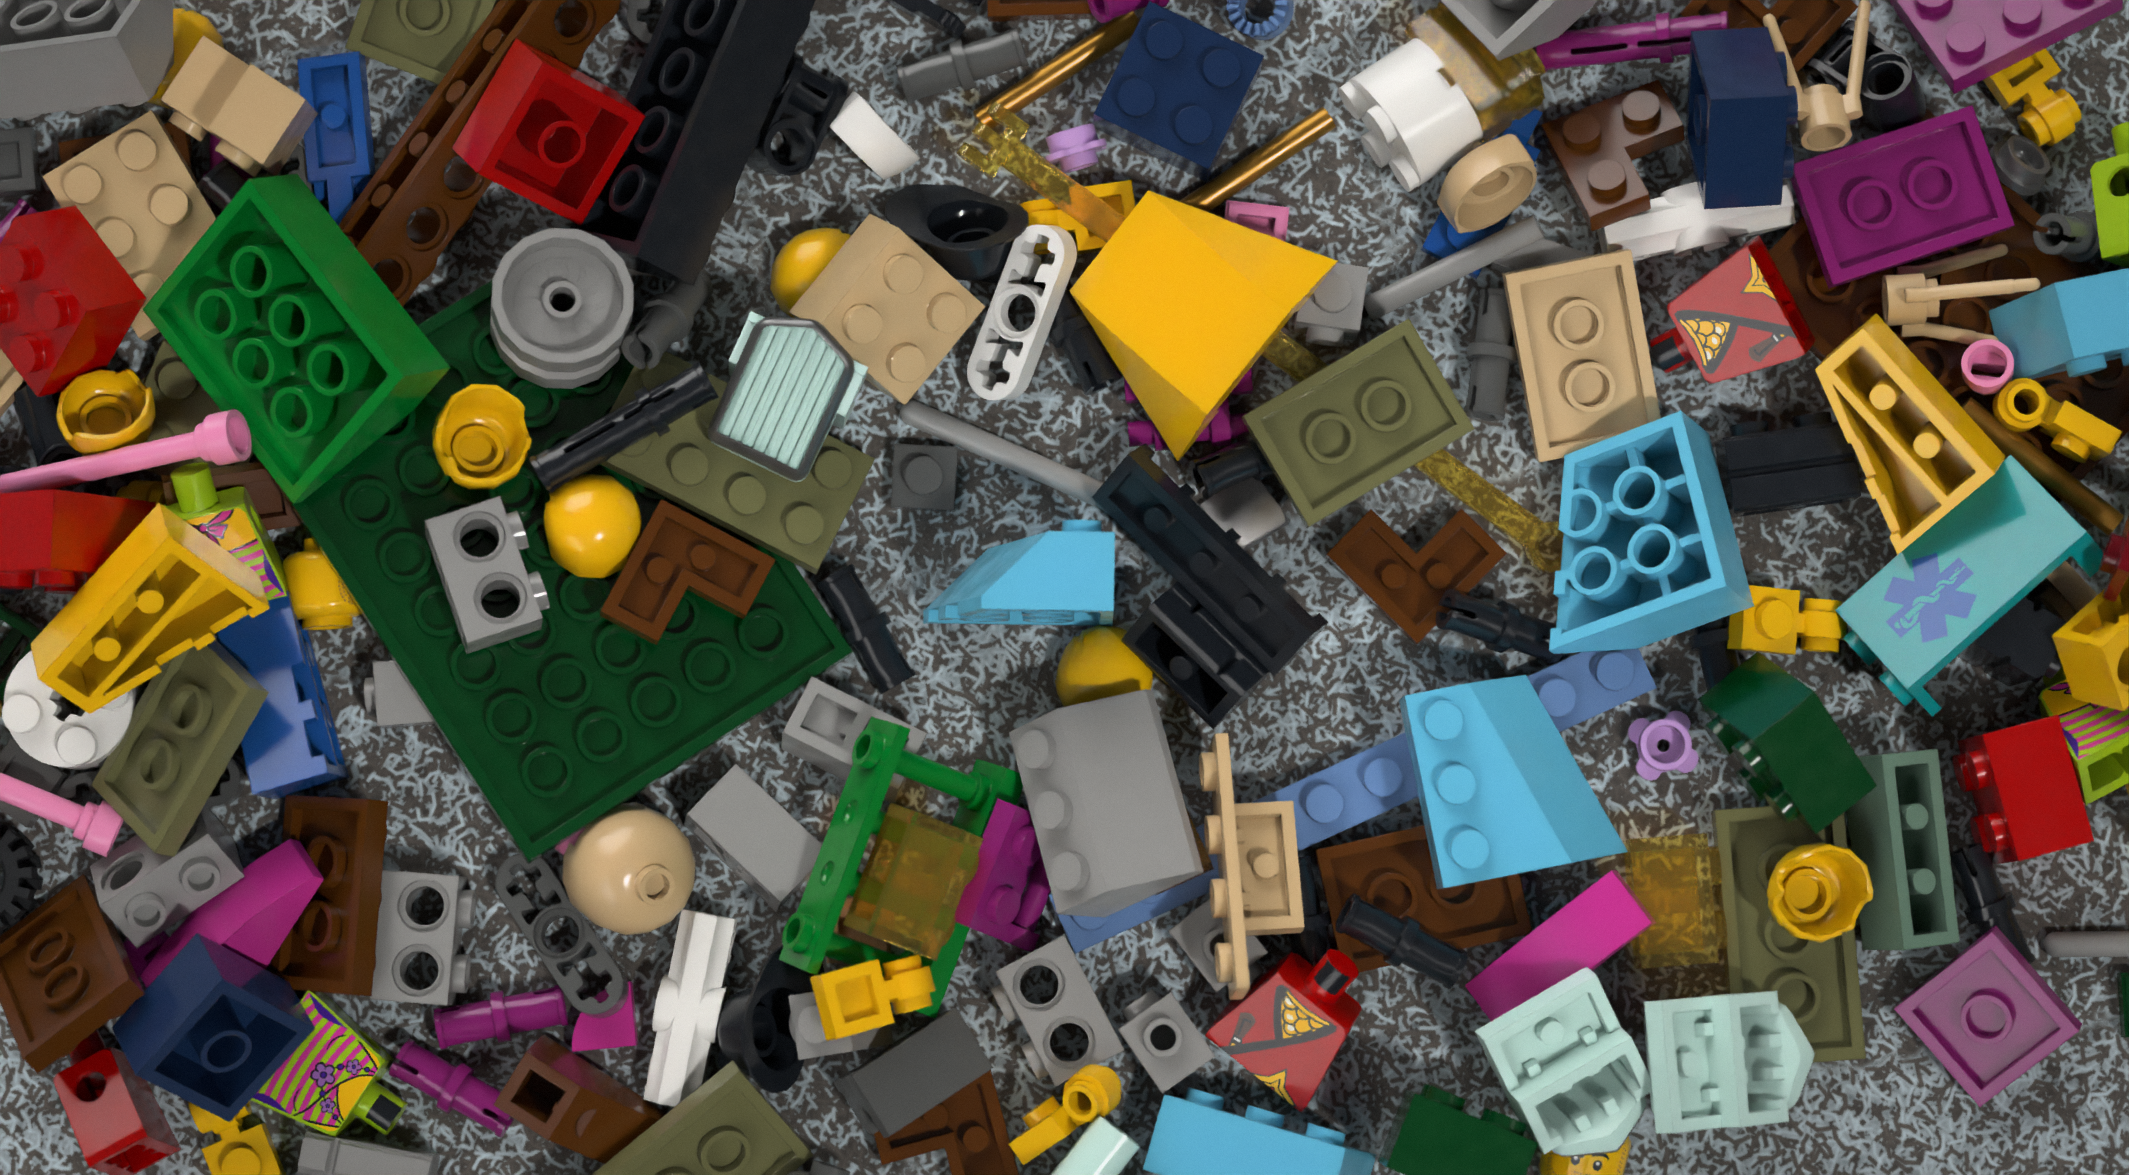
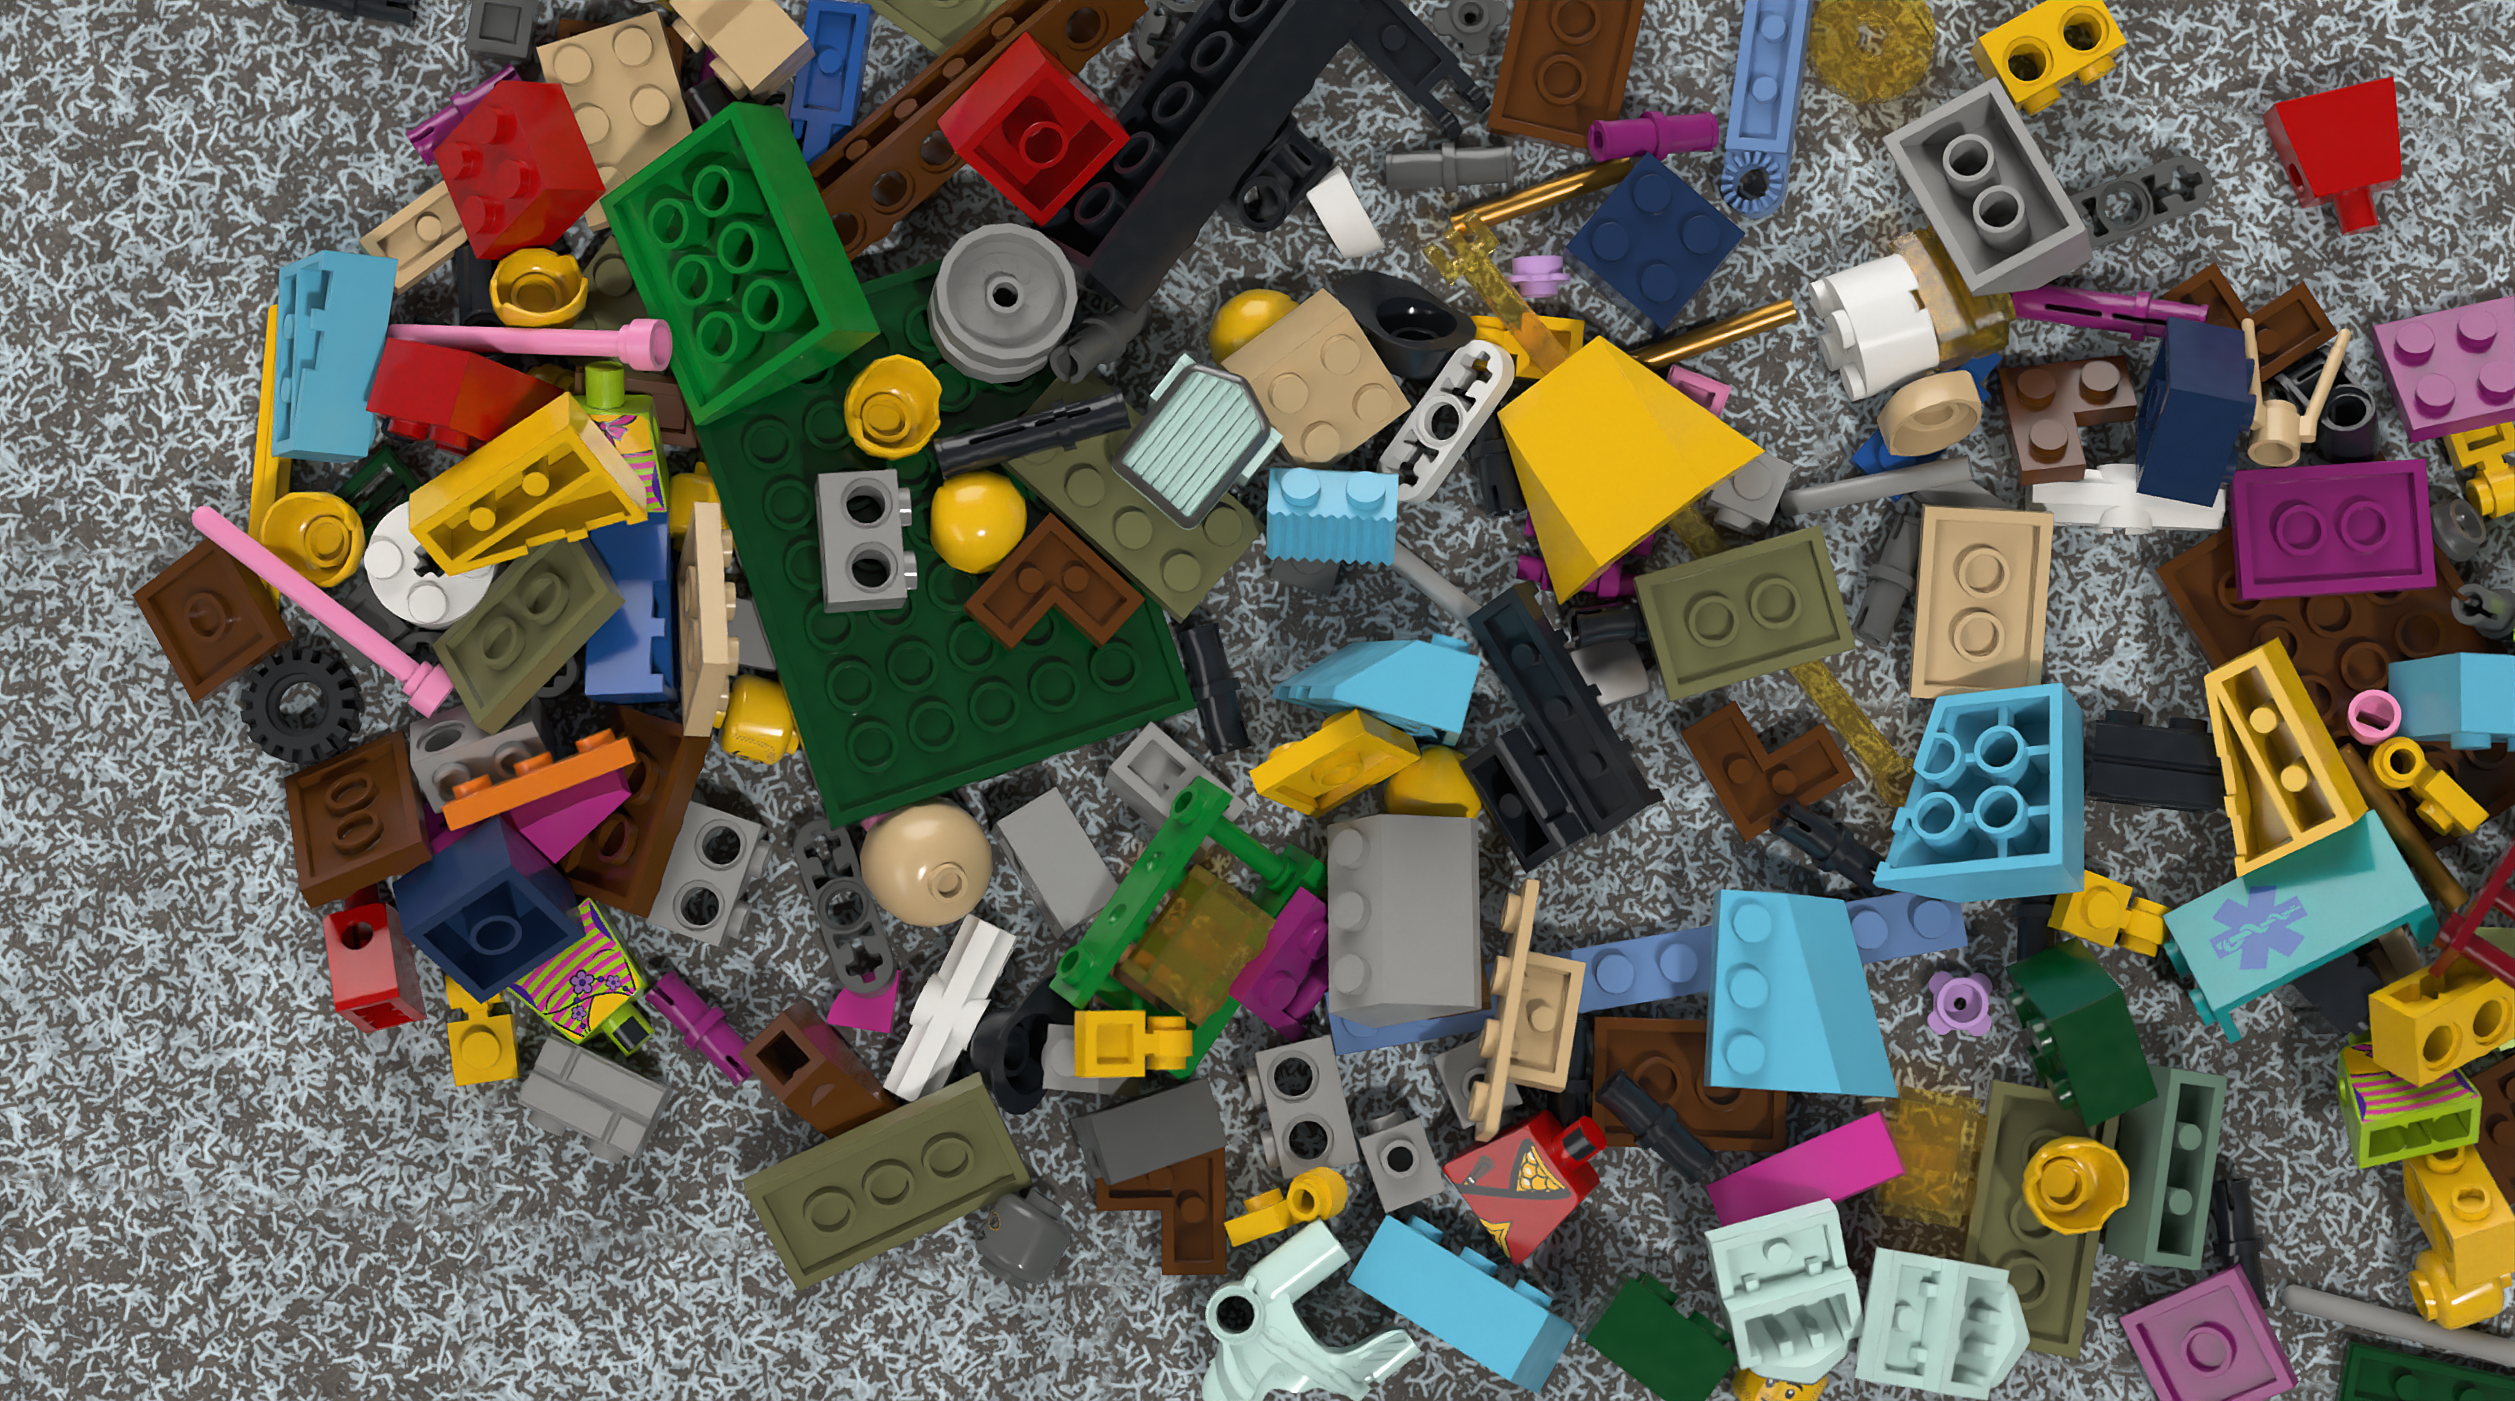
camera: 20 degrees right, 0 degrees up
(228, 887) = (538, 778): none -> orange plate
(348, 685) = (703, 611): none -> tan plate
(425, 776) = (756, 722): none -> yellow head
(500, 1016) = (766, 971): magenta pin -> none
(935, 431) = (1332, 515): none -> medium azure brick
(999, 671) = (1334, 763): none -> yellow plate
(1734, 319) = (2137, 607): torso -> none
(1912, 298) = (2317, 631): tan plant -> none
(2023, 791) = (2300, 1139): red brick -> none

